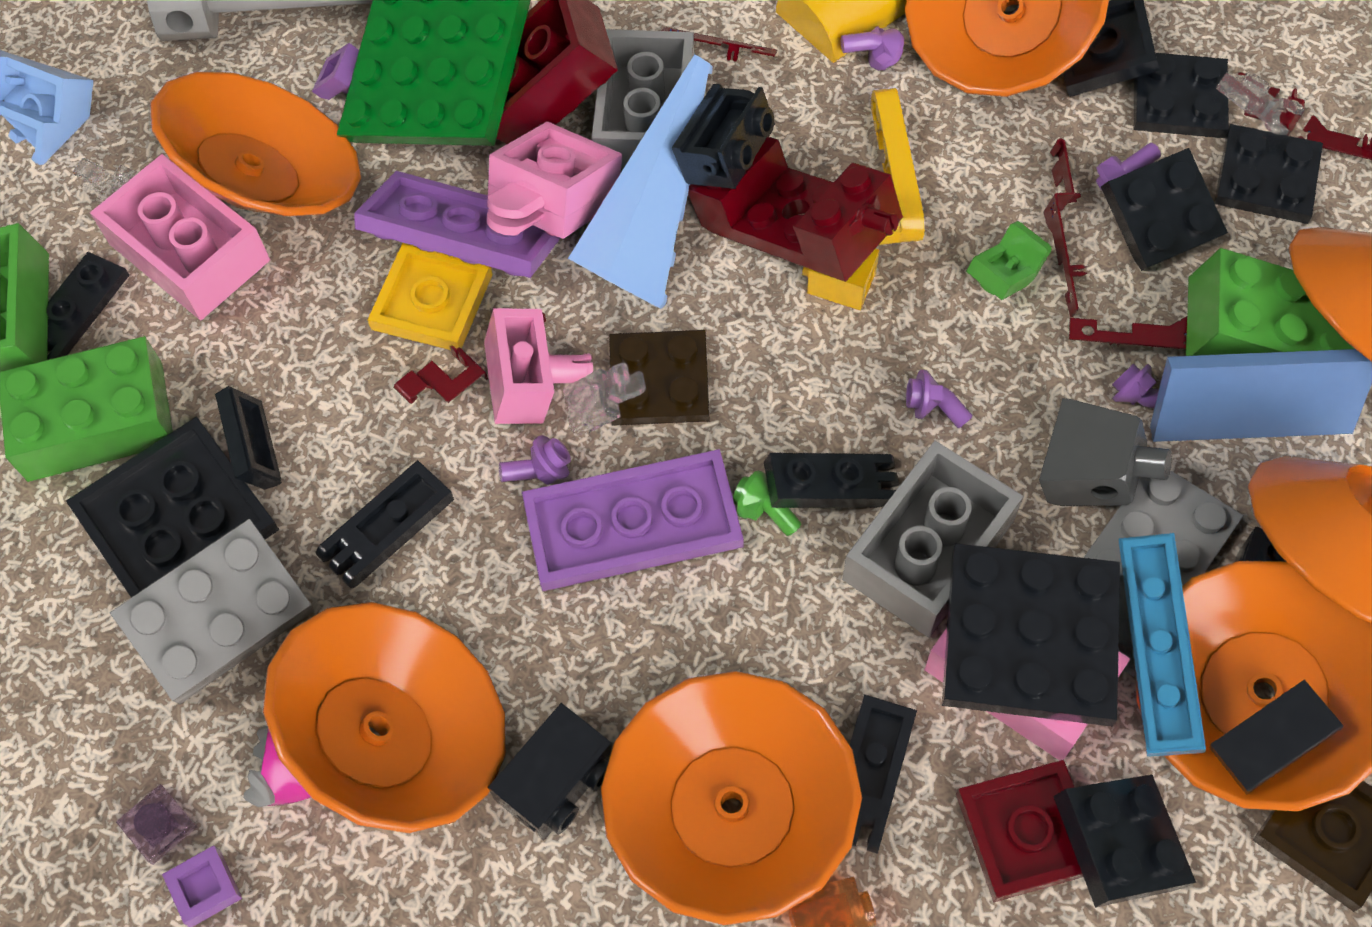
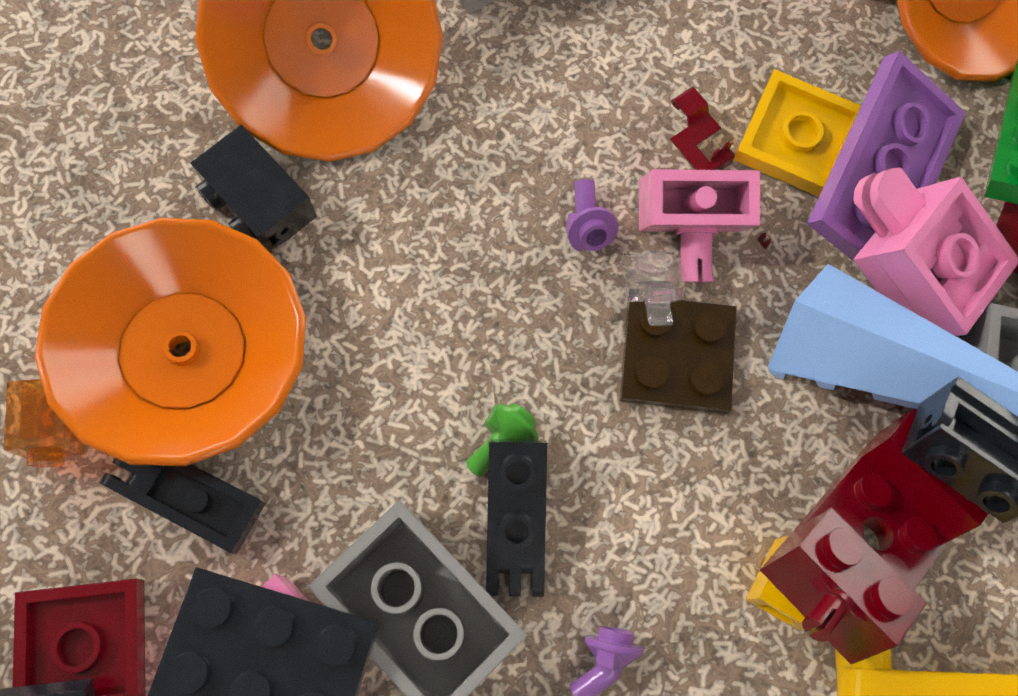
camera: 90 degrees right, 10 degrees up
(385, 524) = (543, 74): black hinge -> none
(632, 520) = (509, 302): medium lavender plate -> none

